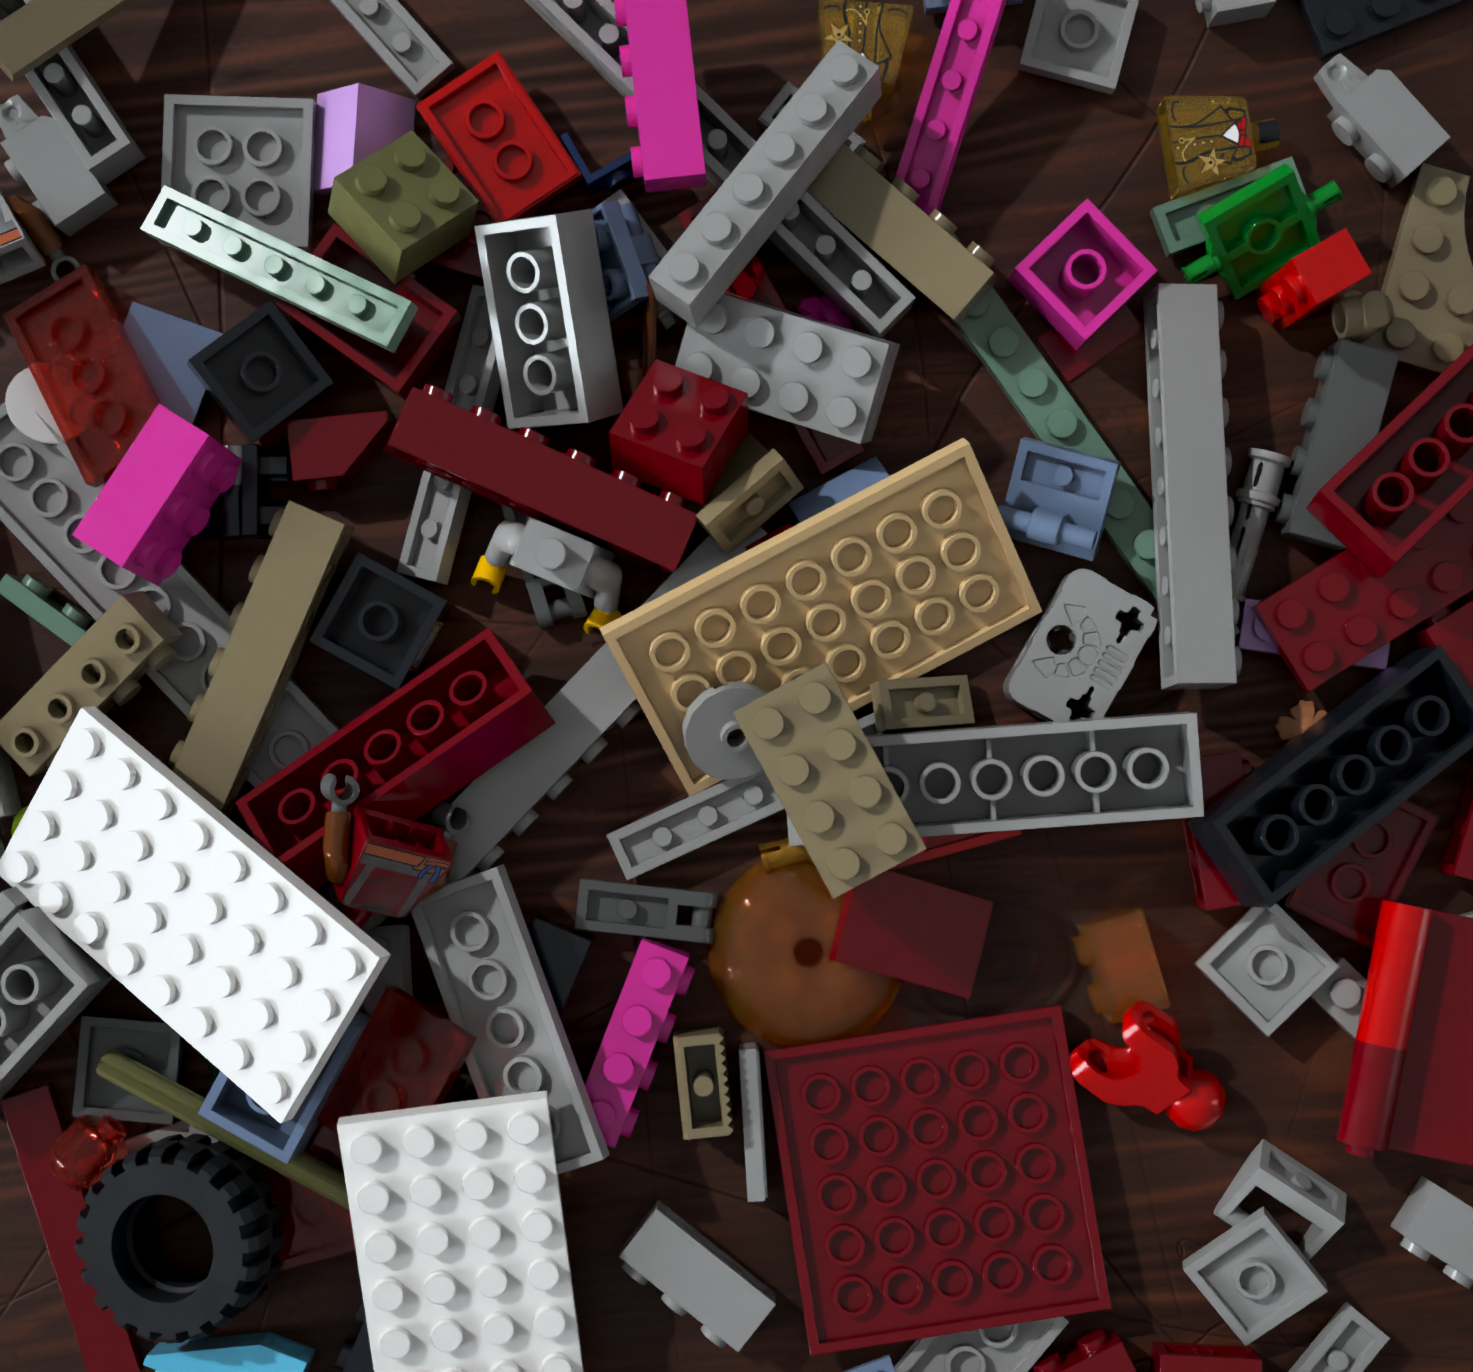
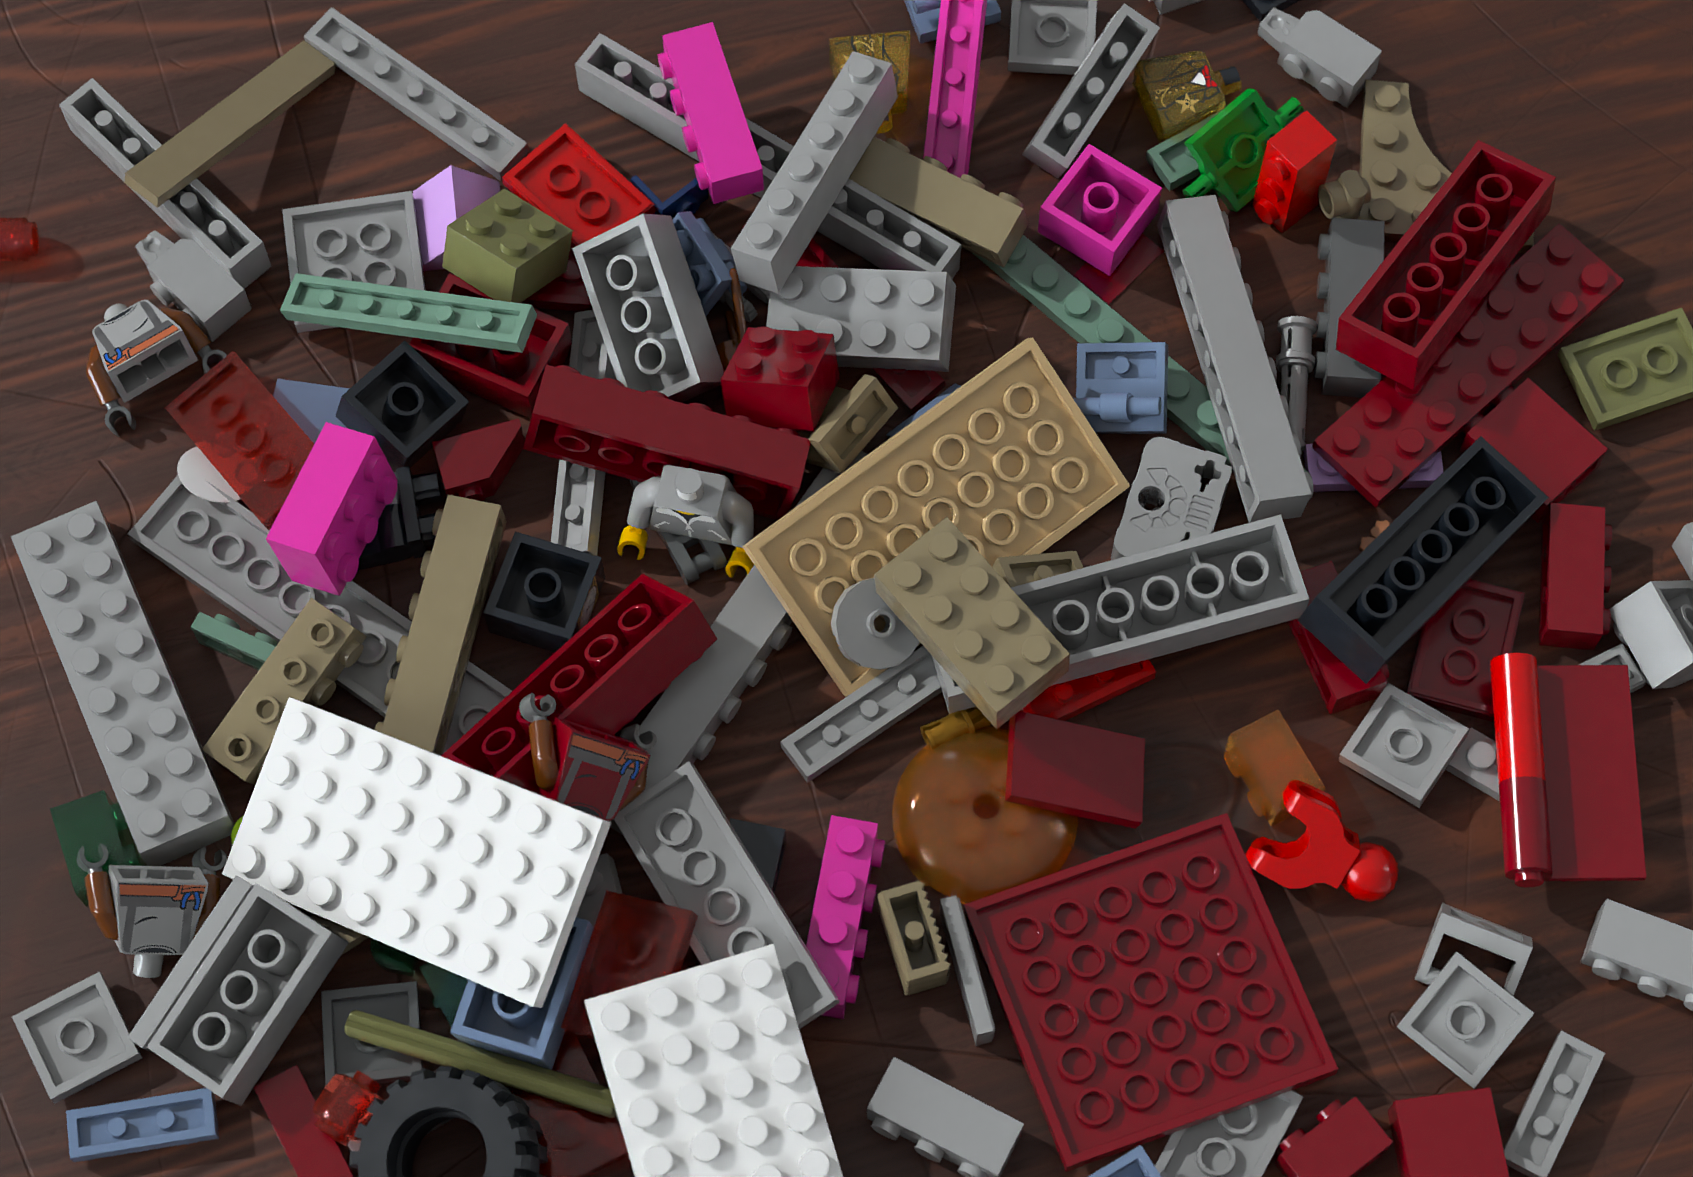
camera: 10 degrees left, 20 degrees down
(644, 910) = (811, 803): dark grey plate -> none
(1106, 125) = (1091, 91): none -> light grey brick

